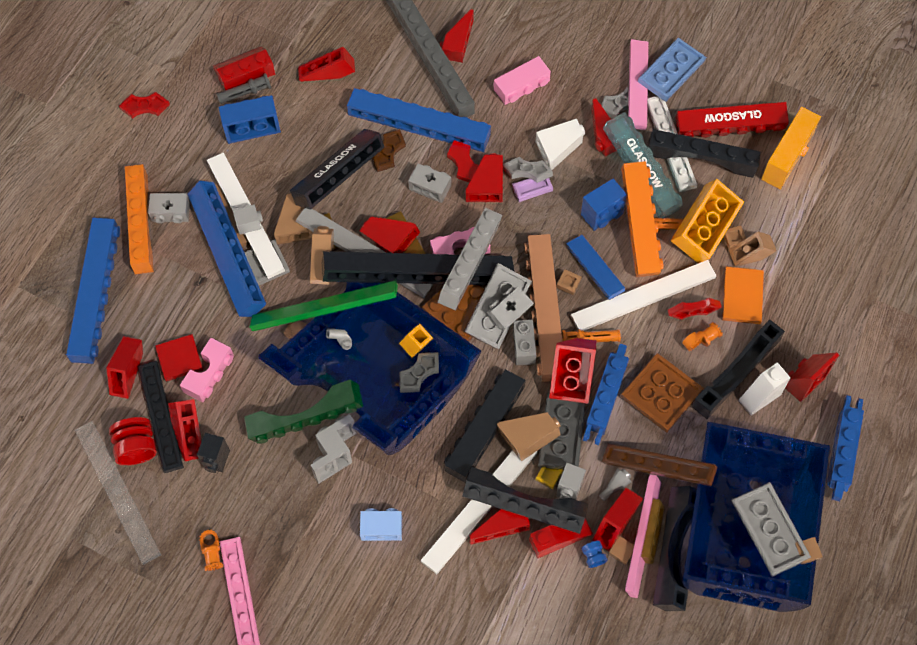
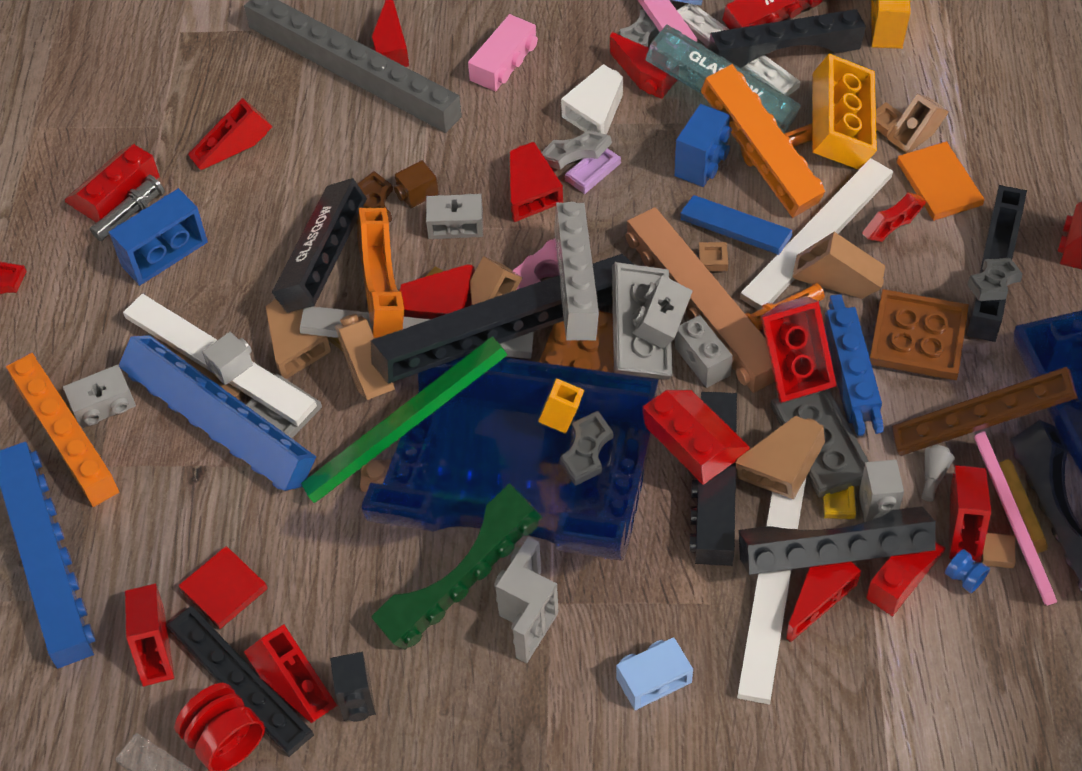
camera: 25 degrees left, 10 degrees down
(201, 384) = (280, 558): bright pink arch -> none
(341, 336) = (453, 448): light grey arm -> none
(361, 203) = (383, 298): none -> orange arch
(418, 119) = (393, 149): blue brick -> none
(418, 150) = (415, 184): none -> reddish brown brick
(422, 241) = (492, 280): none -> medium nougat slope
(460, 155) = (474, 170): red tile -> none
(484, 394) = (693, 433): none -> red slope
(638, 327) = (839, 267): none -> medium nougat slope
(704, 337) = (927, 247): orange connector -> none
(720, 383) = (994, 279): none -> dark grey tile
(765, 389) = (1048, 267): white slope -> none

